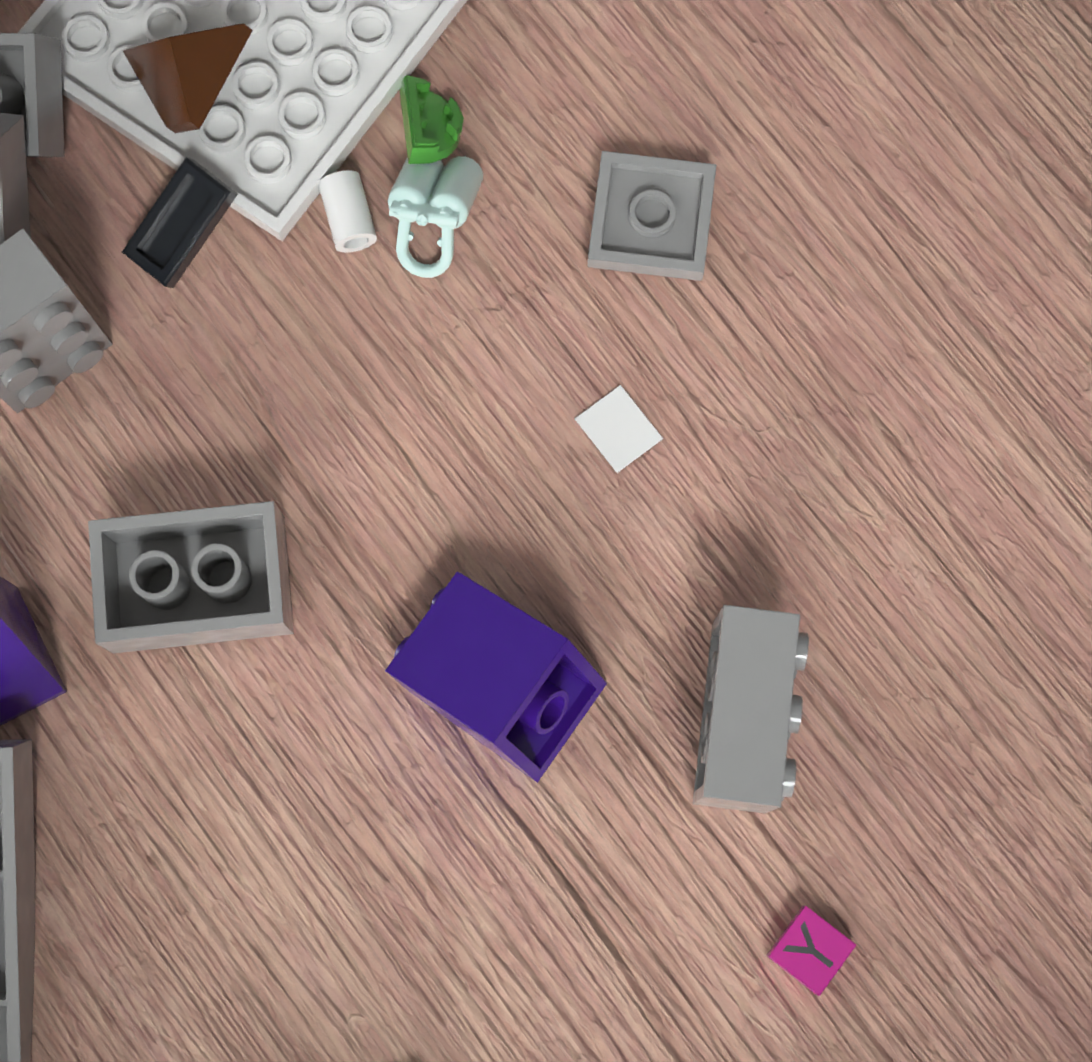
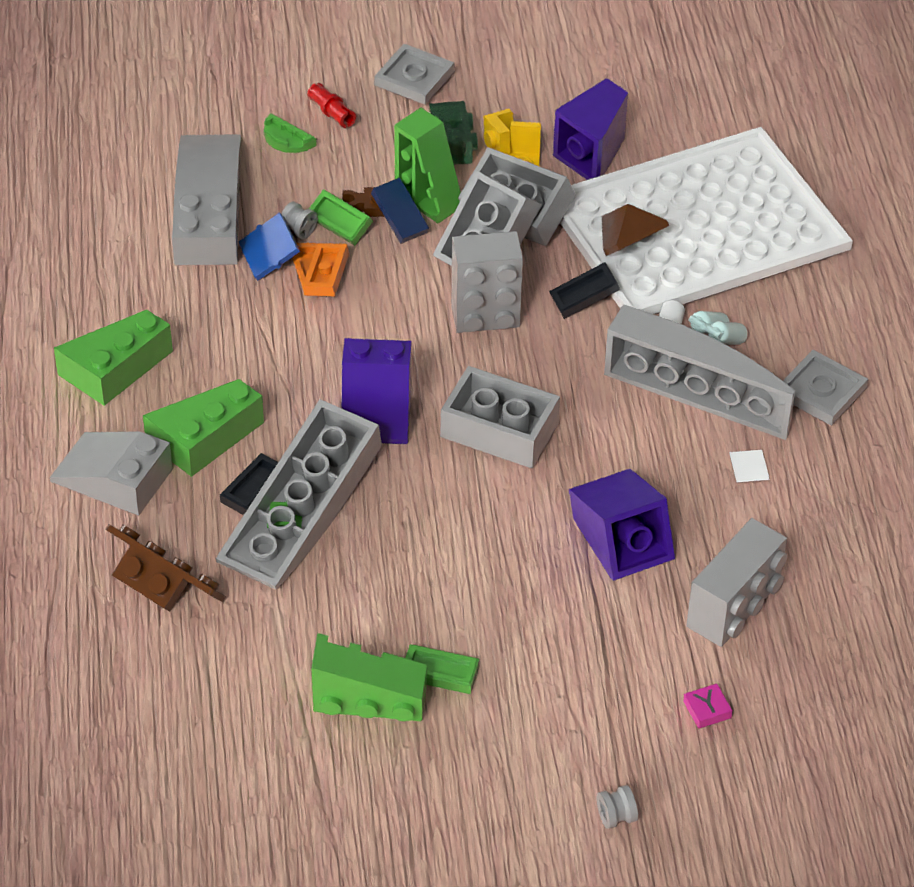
camera: 30 degrees right, 30 degrees down
(429, 122) = (732, 304): bright green tile -> none
(447, 307) = (696, 371): none -> light grey slope

